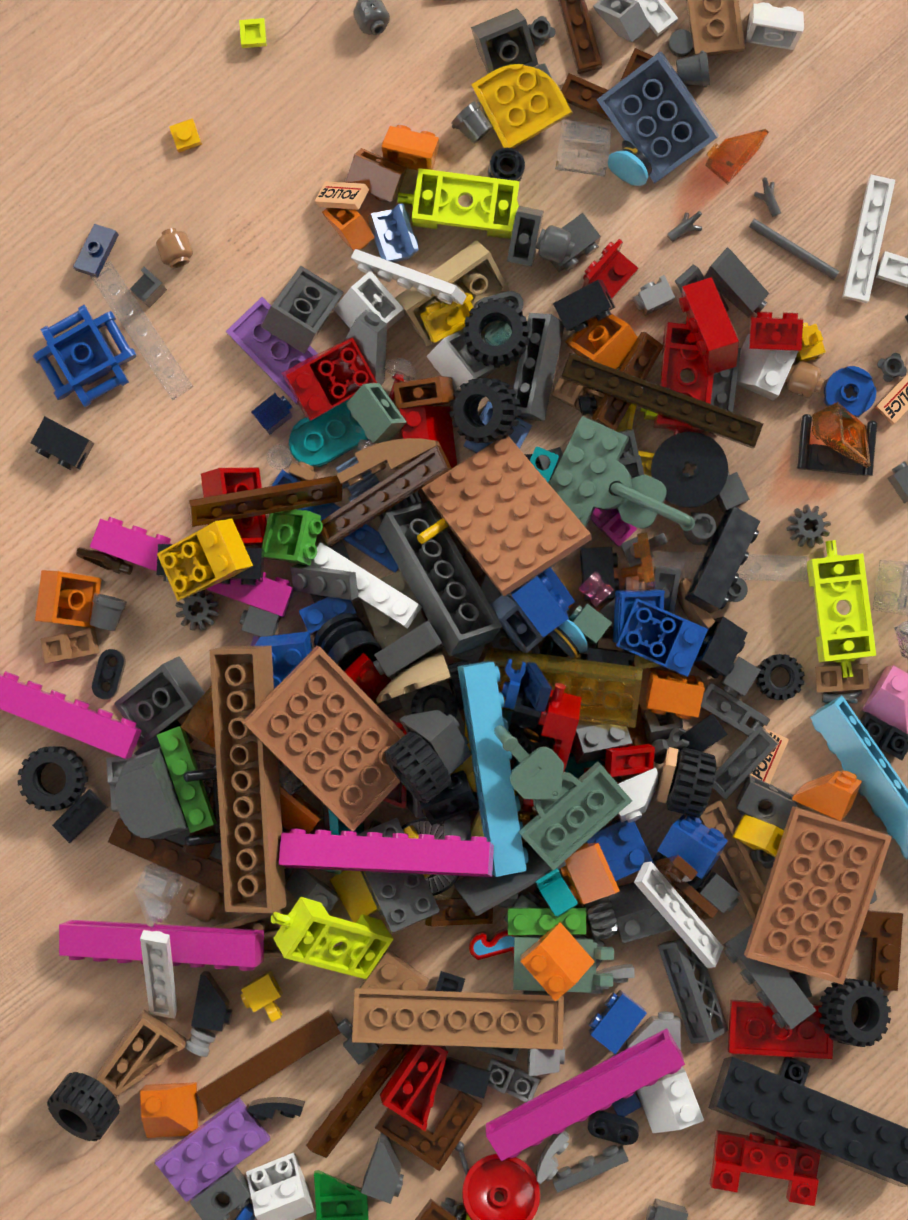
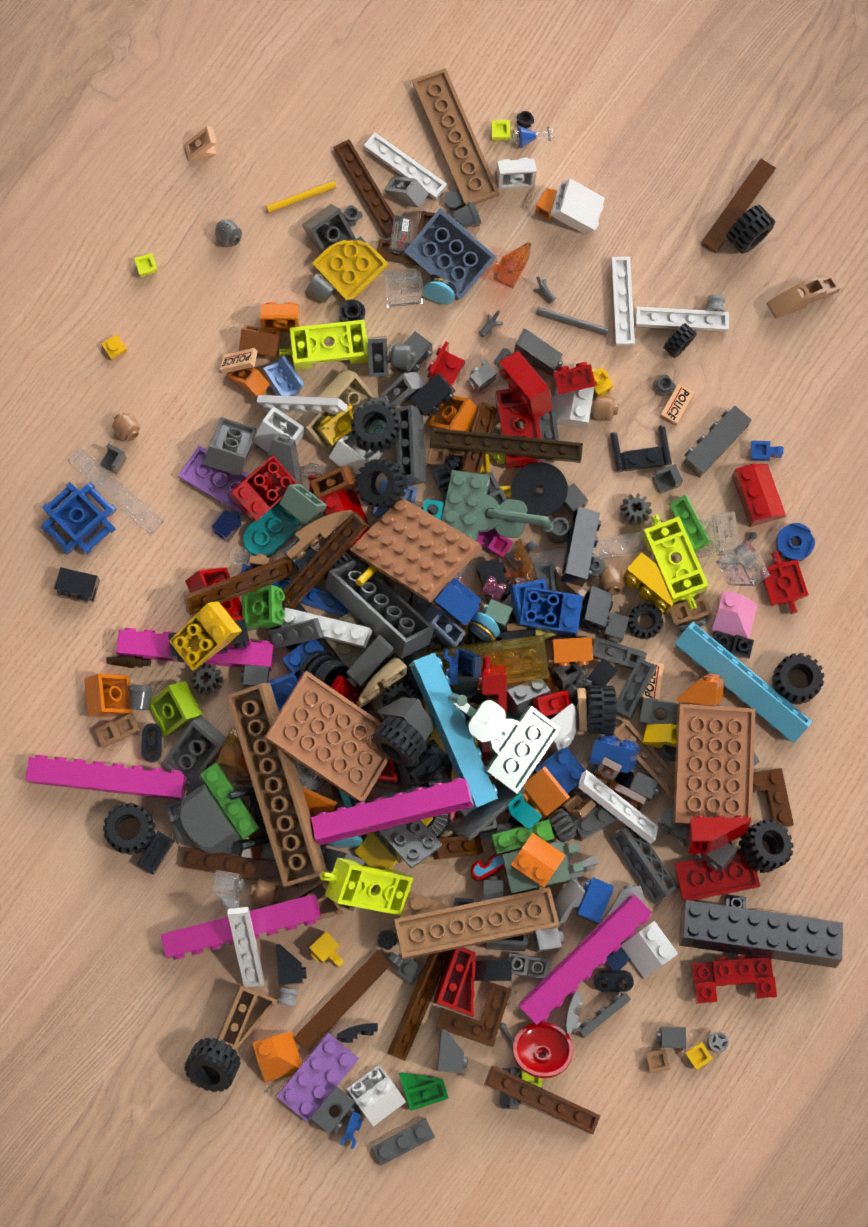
camera: 20 degrees left, 10 degrees down
(96, 250) = (68, 442): plate -> none
(148, 637) = (175, 708): none -> lime slope
(336, 1004) = (392, 939): none -> black plate
(491, 976) = (492, 888): none -> dark grey brick
(547, 287) = (402, 389): none -> light grey slope
(567, 419) = (442, 478): none -> black slope
(582, 1013) = (568, 897): none -> light grey slope
(598, 74) = (400, 234): none -> tile
(628, 900) = (576, 806): none -> medium nougat slope
(751, 613) = (612, 580): none -> medium nougat head
(782, 986) = (712, 833): none -> red slope
(800, 630) = (646, 579): none -> yellow slope
(807, 79) = (546, 203): none -> orange brick
(842, 433) = (641, 437): clear orange slope -> none
(844, 93) = (577, 206): none -> white brick
(861, 495) = (667, 479): none -> dark grey panel
(862, 386) = (642, 419): blue plate -> none
(878, 575) = (695, 531): none -> bright green plate

